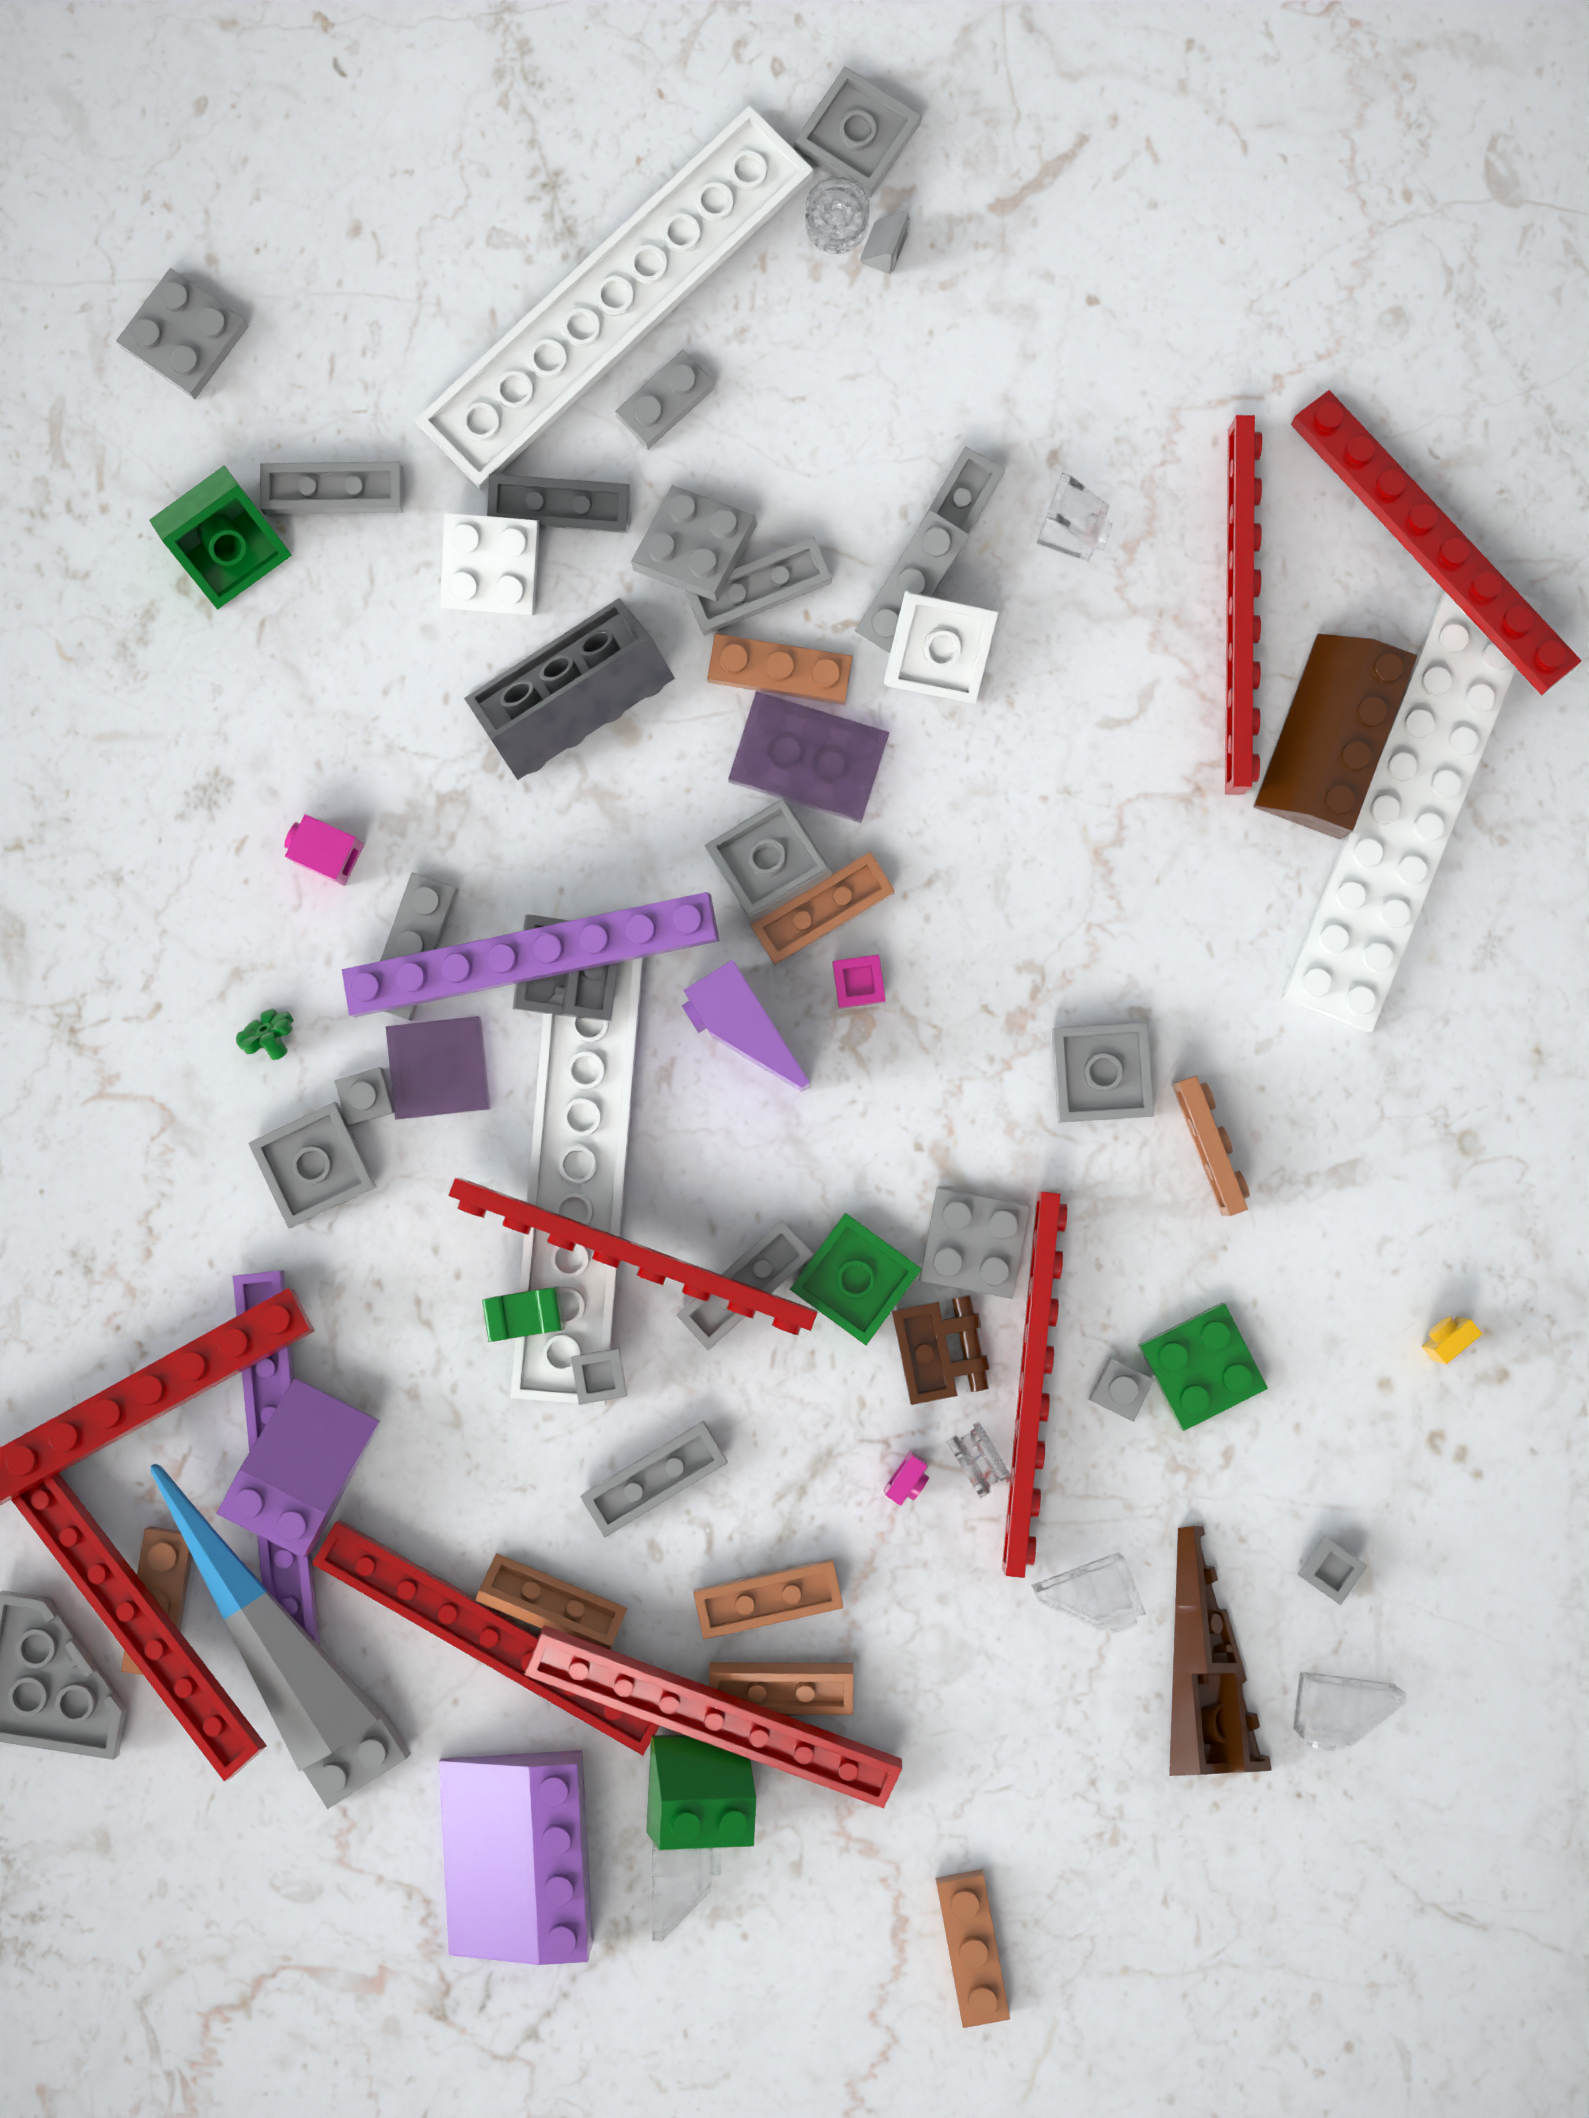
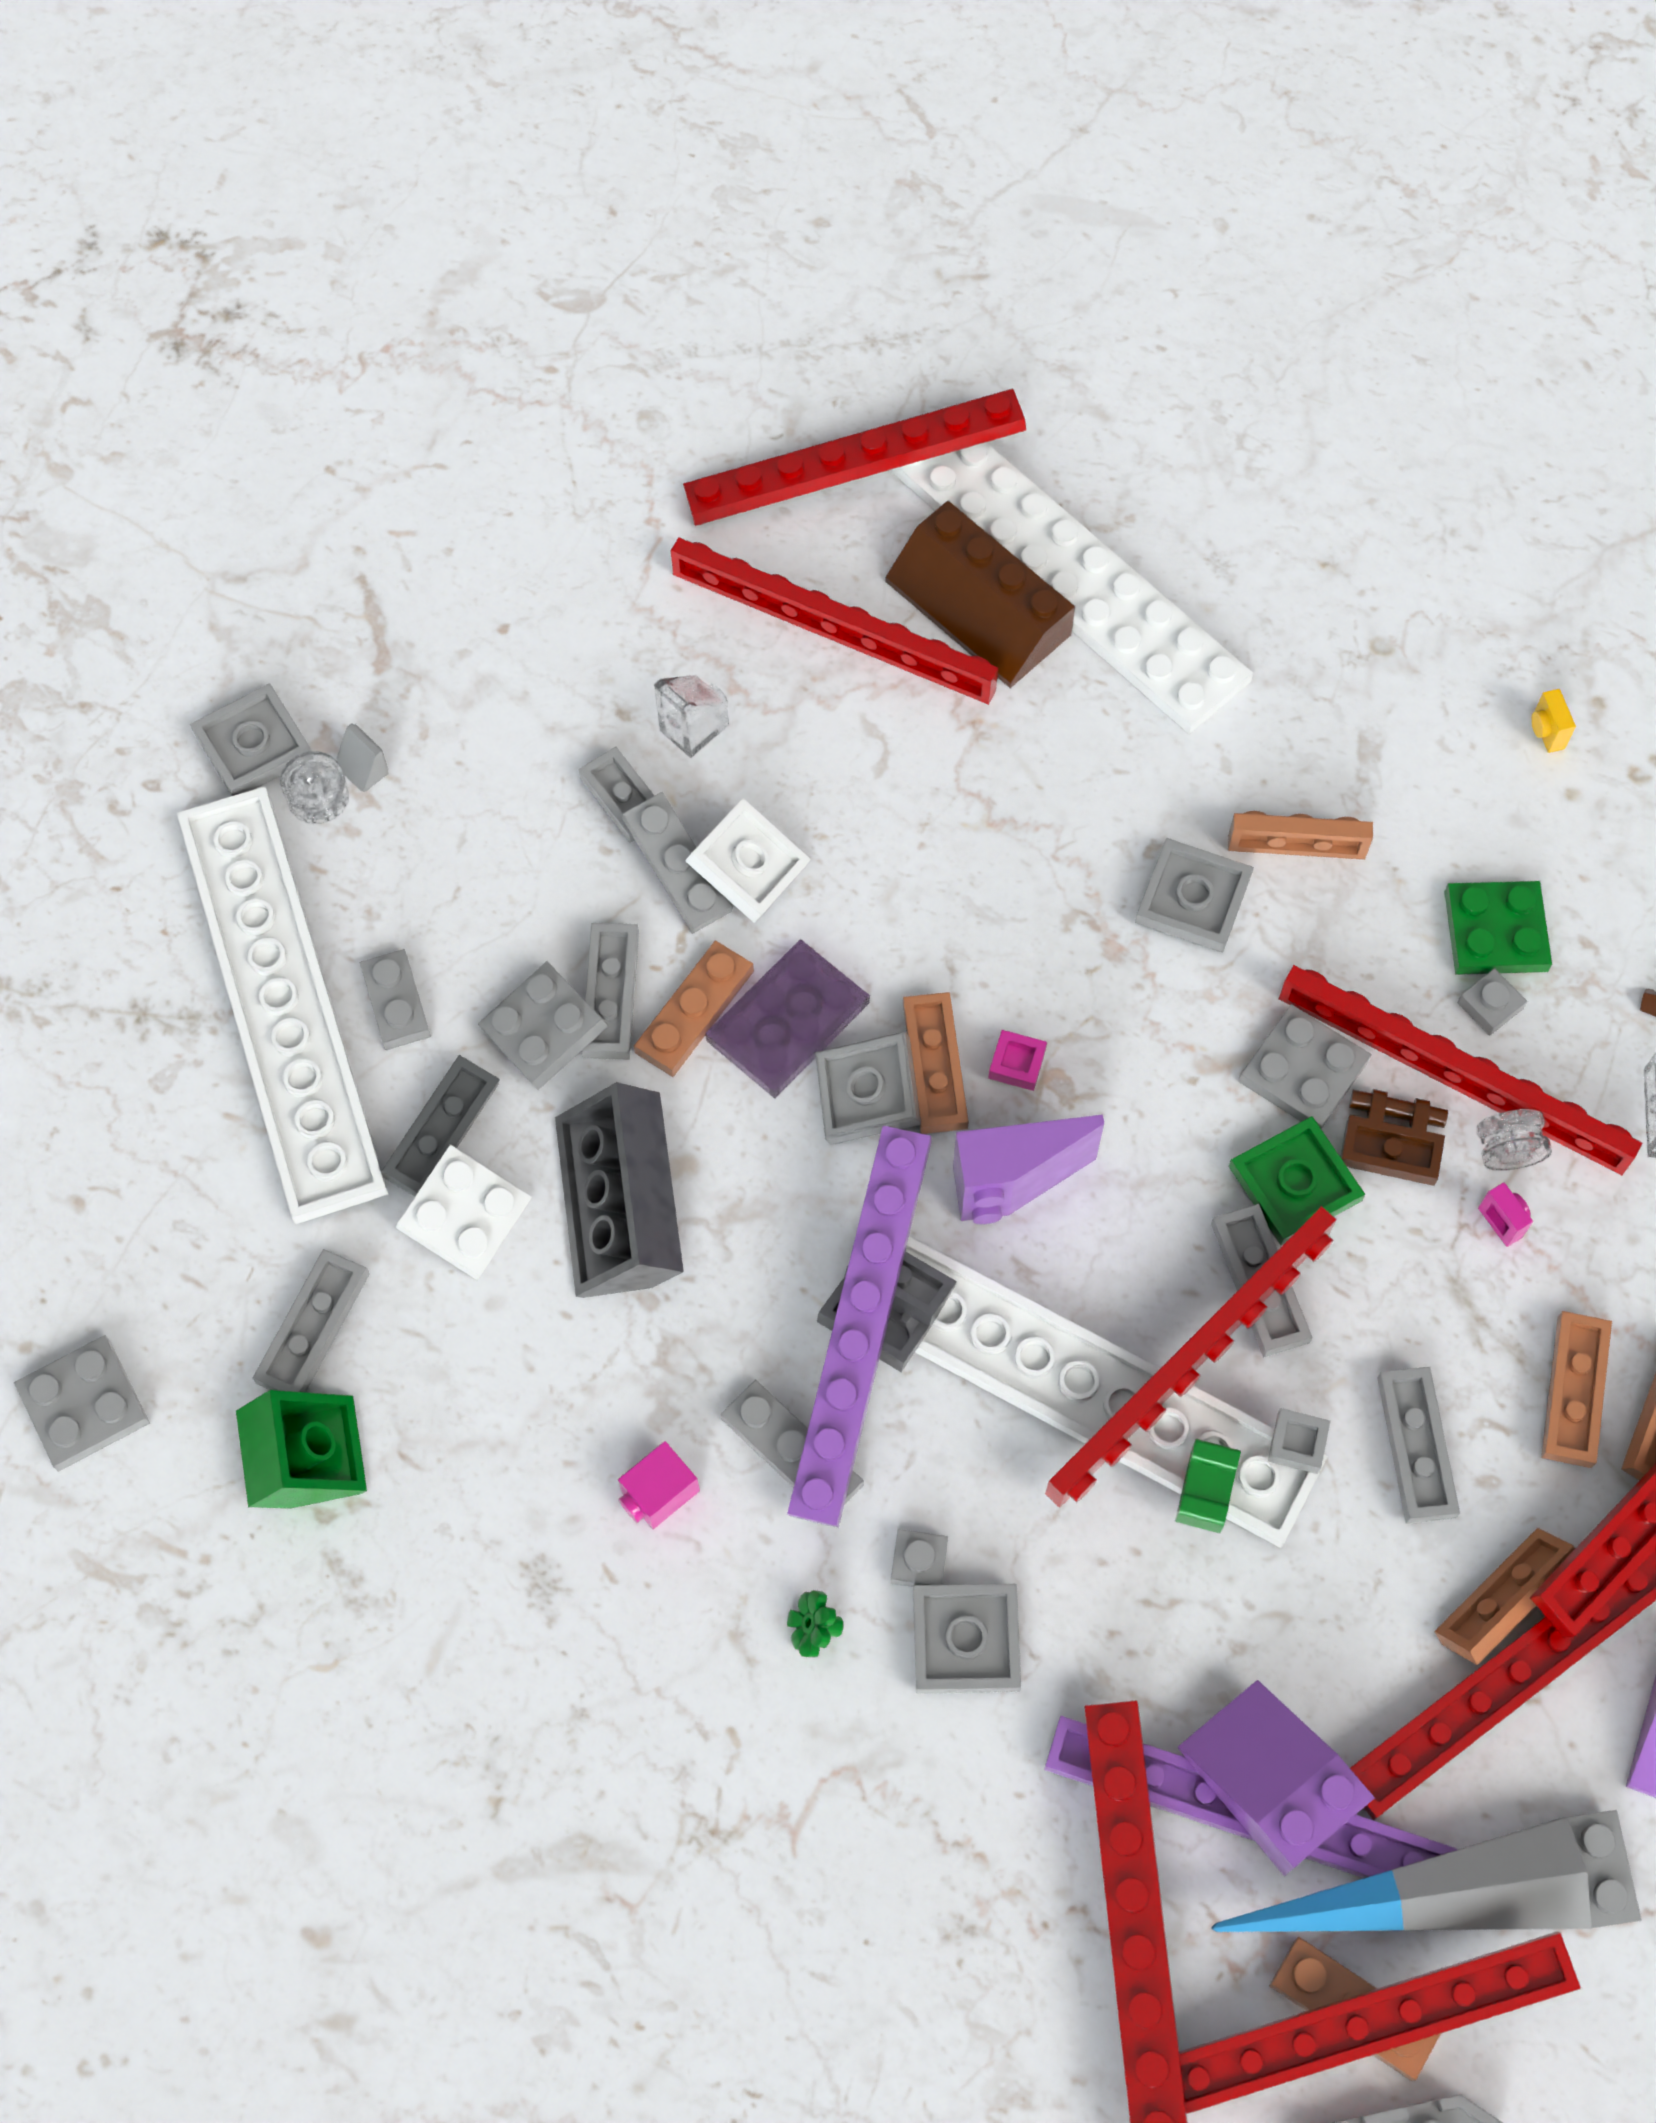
camera: 65 degrees left, 20 degrees down
(438, 1068) = (923, 1477): clear purple tile -> none

